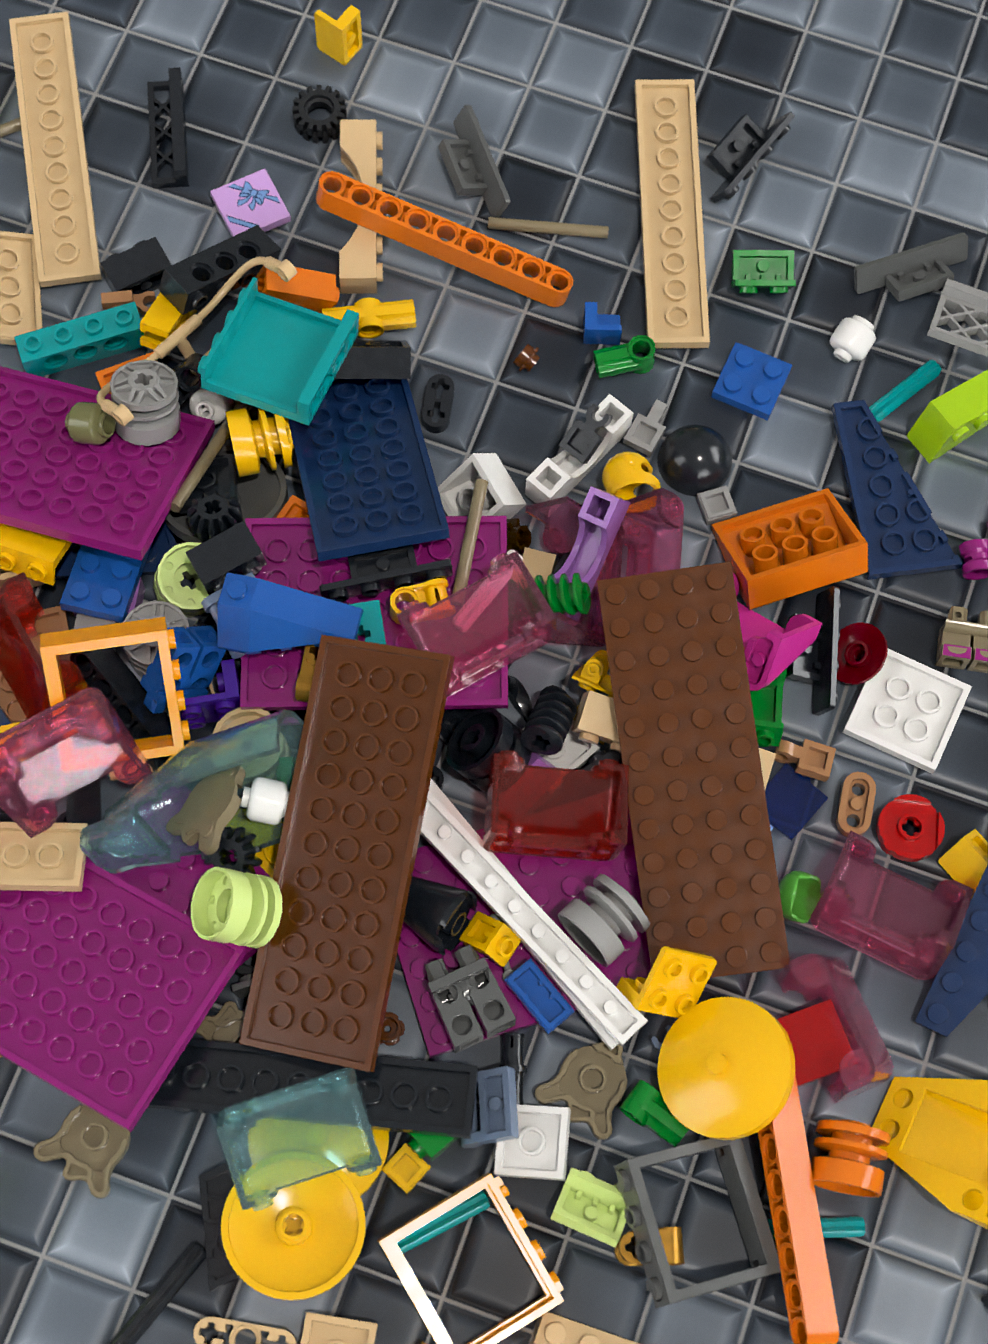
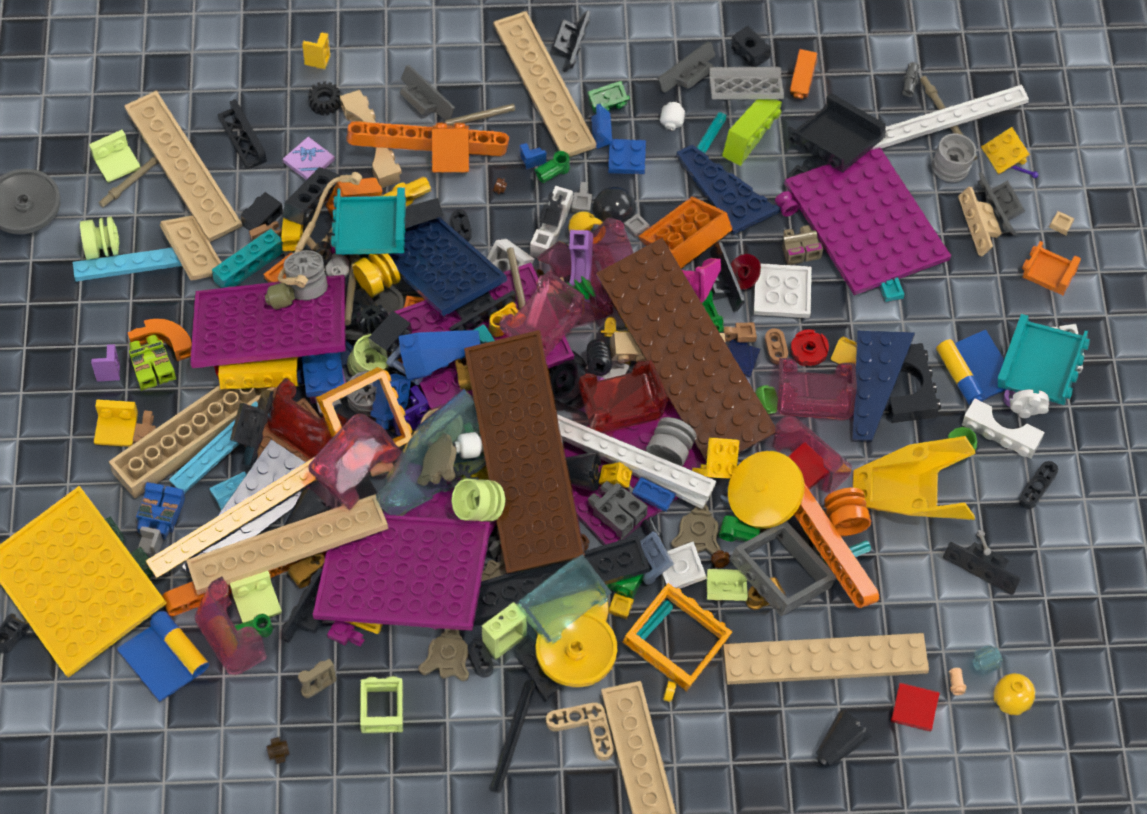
camera: 20 degrees left, 10 degrees down
(148, 1172) = (485, 657): none -> black beam
(179, 1155) = (504, 634): none -> yellowish green window
(471, 268) = (450, 148): none -> orange panel
(604, 1151) = (720, 559): none -> reddish brown plate
(731, 317) = (601, 127): none -> blue panel

